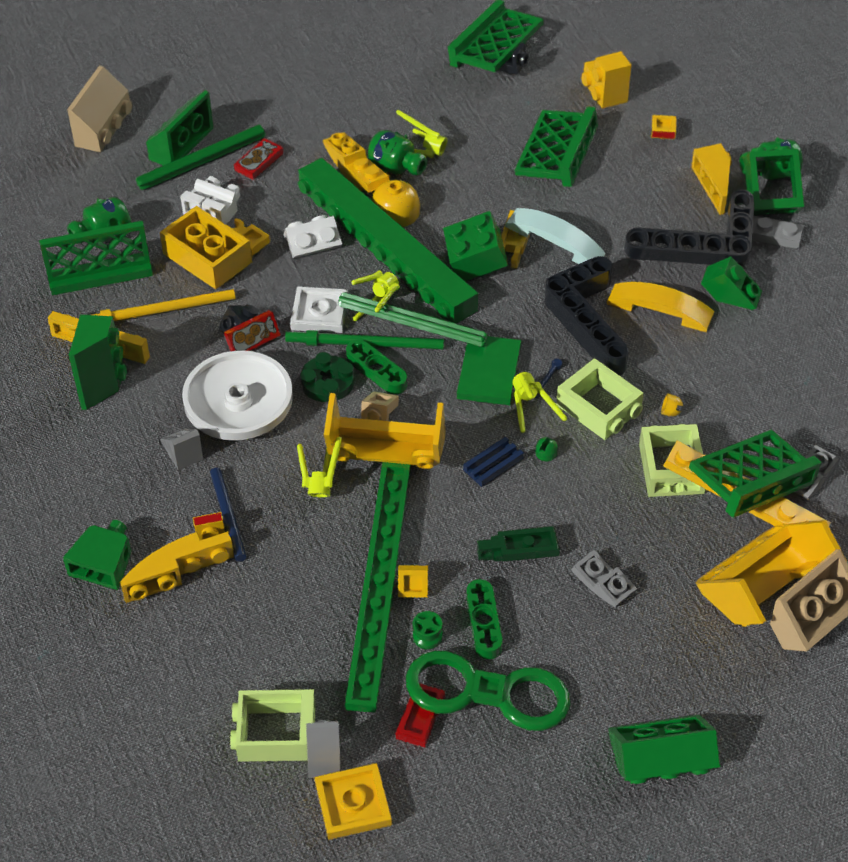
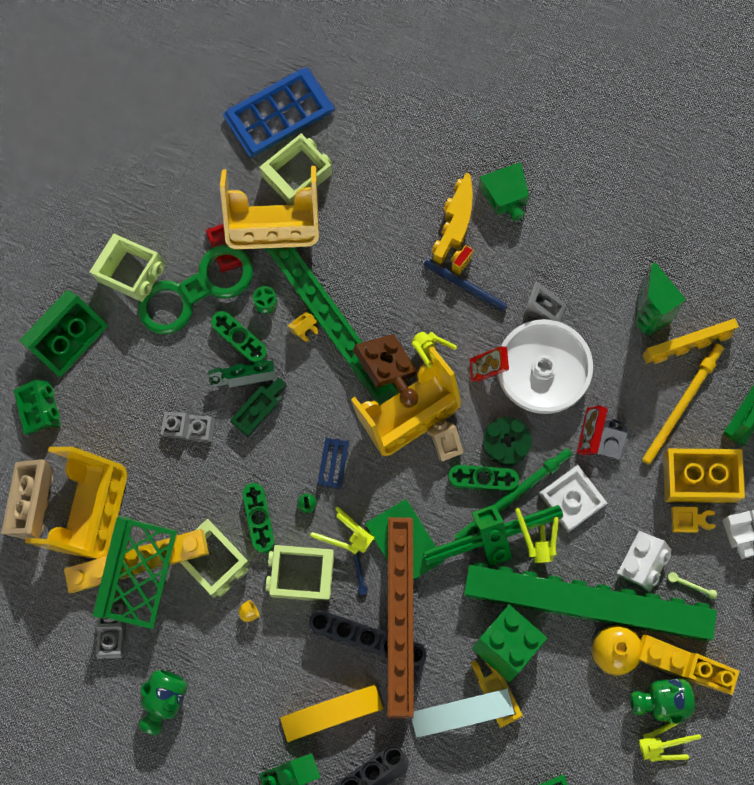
camera: 140 degrees right, 25 degrees up
(230, 809) = (278, 112): none -> blue piece
(282, 425) = (489, 364): none -> tile
(287, 194) = (673, 577): none -> yellowish green hinge
(323, 748) = (251, 170): light grey slope -> none
(343, 675) = (270, 225): none -> yellow windscreen
(353, 801) = (210, 160): yellow plate -> none
(376, 476) = (385, 373): none -> reddish brown plate
(409, 318) = (493, 535): none -> green bracket
(509, 578) = (242, 374): none -> dark green hinge
(543, 312) = (400, 618): none -> dark orange tile
(551, 783) = (116, 250): none -> yellowish green window
(600, 477) = (267, 523): none -> green beam
(746, 696) = (37, 406): none -> green bracket
(801, 388) = (161, 699): none -> green piece

